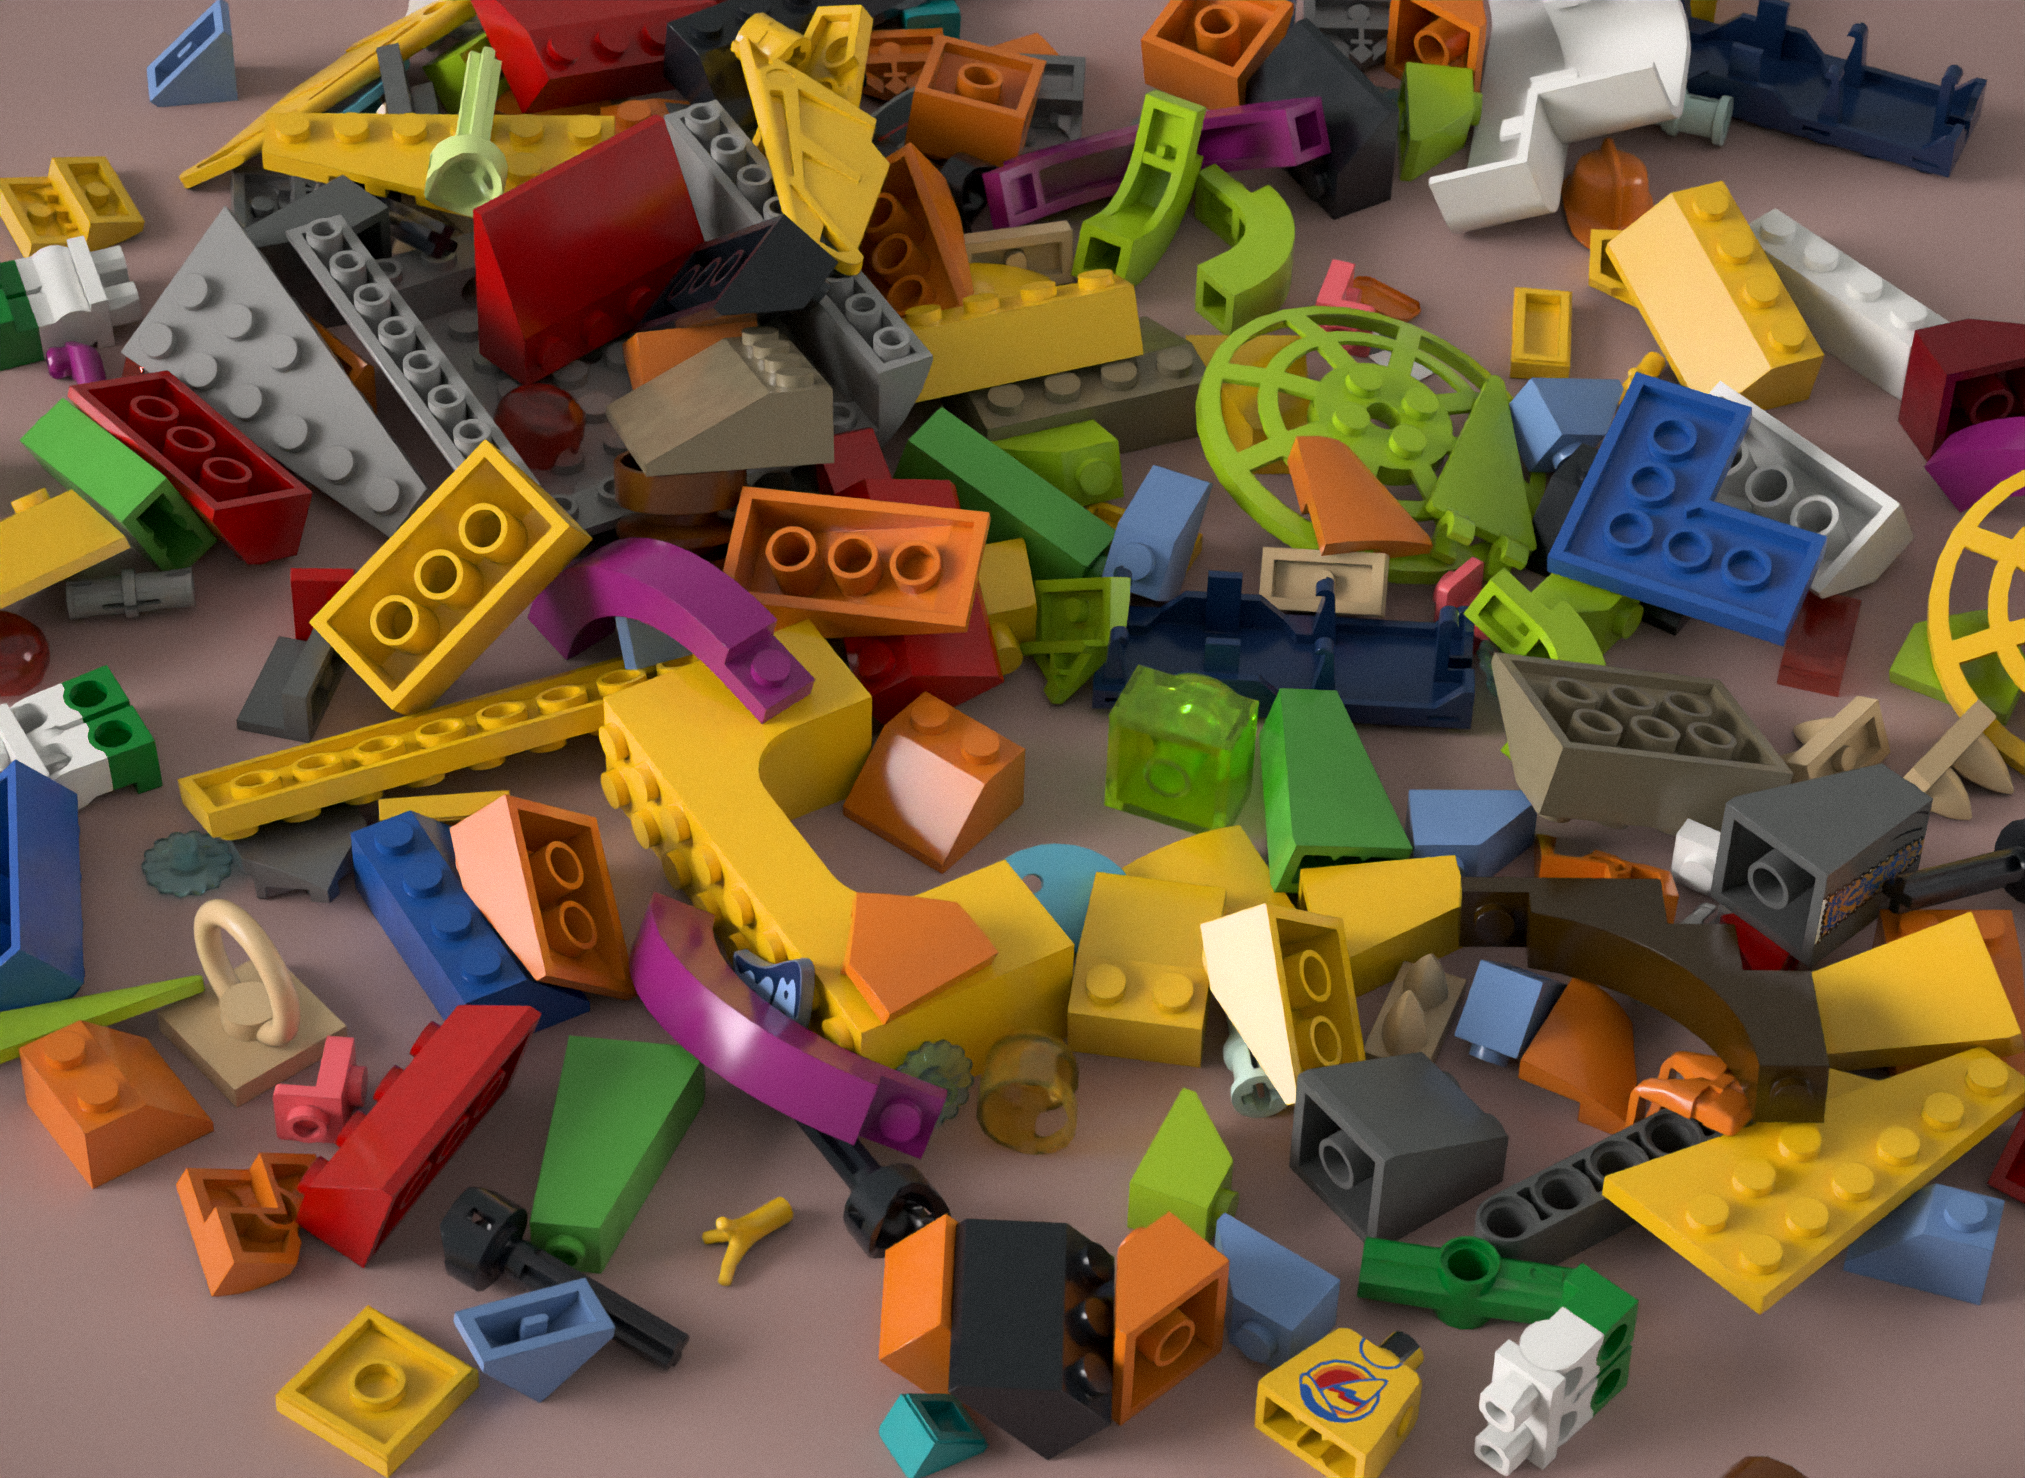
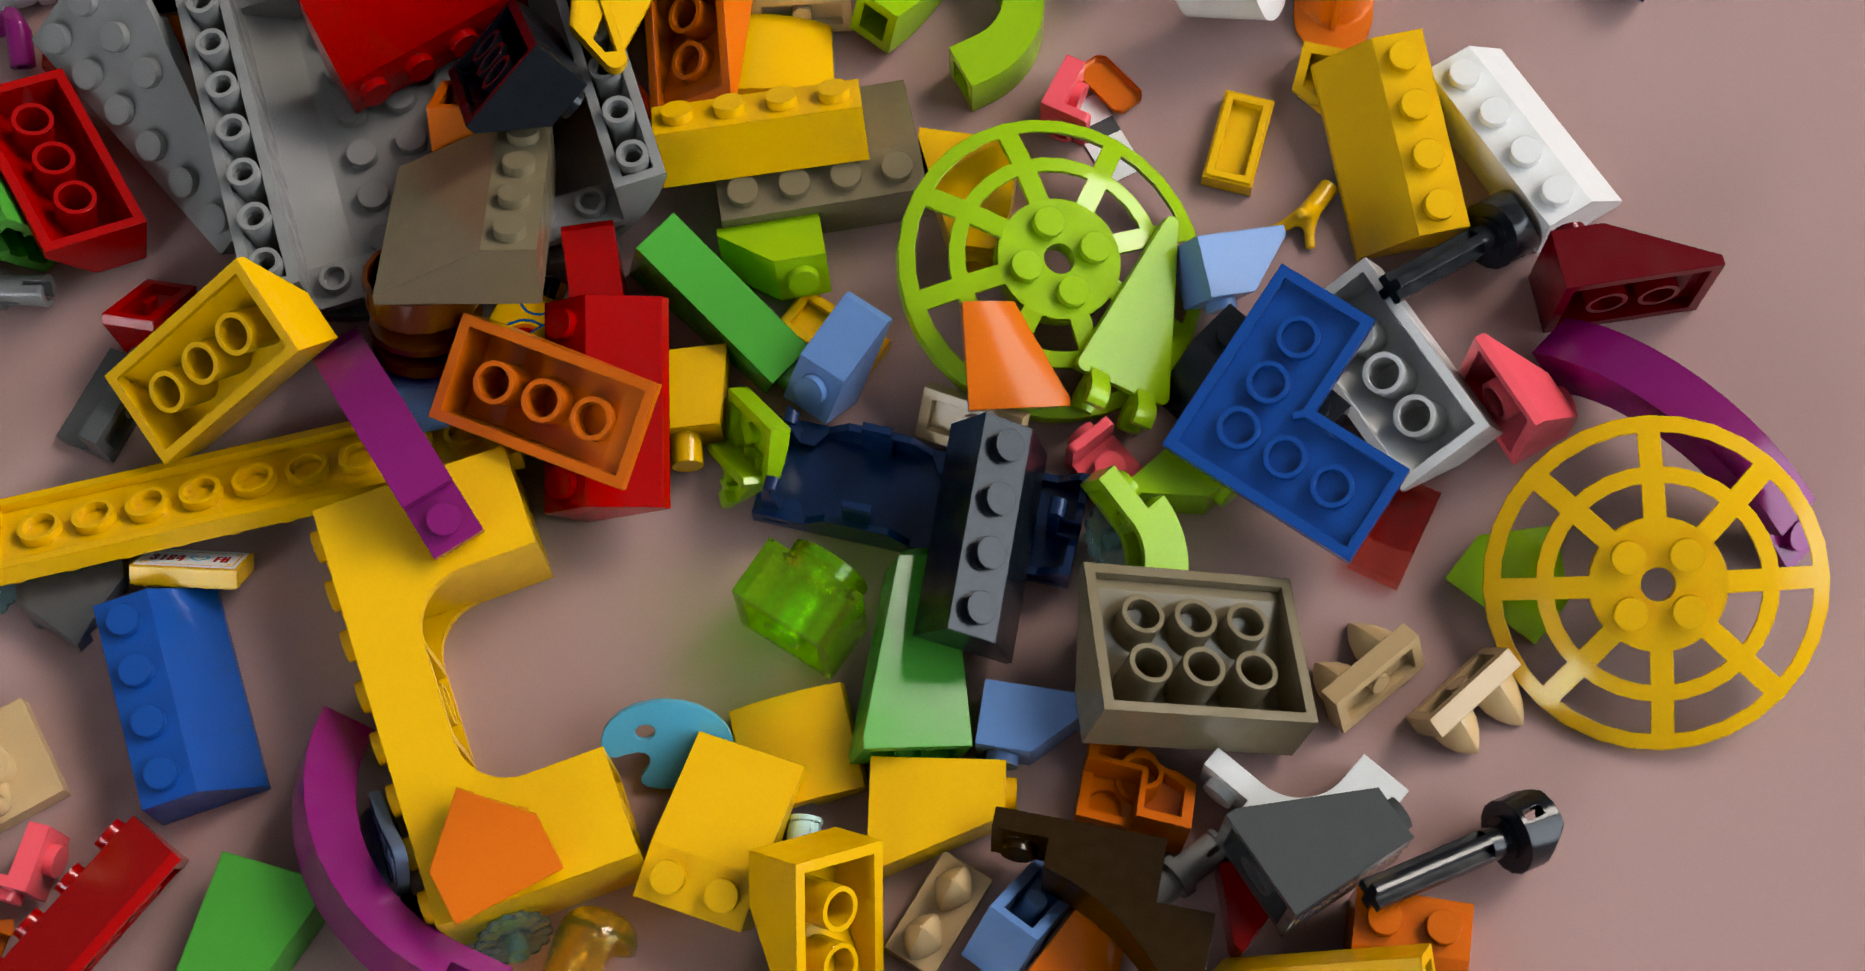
camera: 15 degrees right, 25 degrees up
(541, 423) = (347, 170): clear red hair -> none
(546, 892) = (238, 702): orange slope -> none
(937, 783) = (597, 598): orange slope -> none
(1371, 649) = (982, 537): none -> black slope
(1851, 376) = (1495, 239): none -> black piece
(1928, 493) = (1518, 397): none -> coral slope

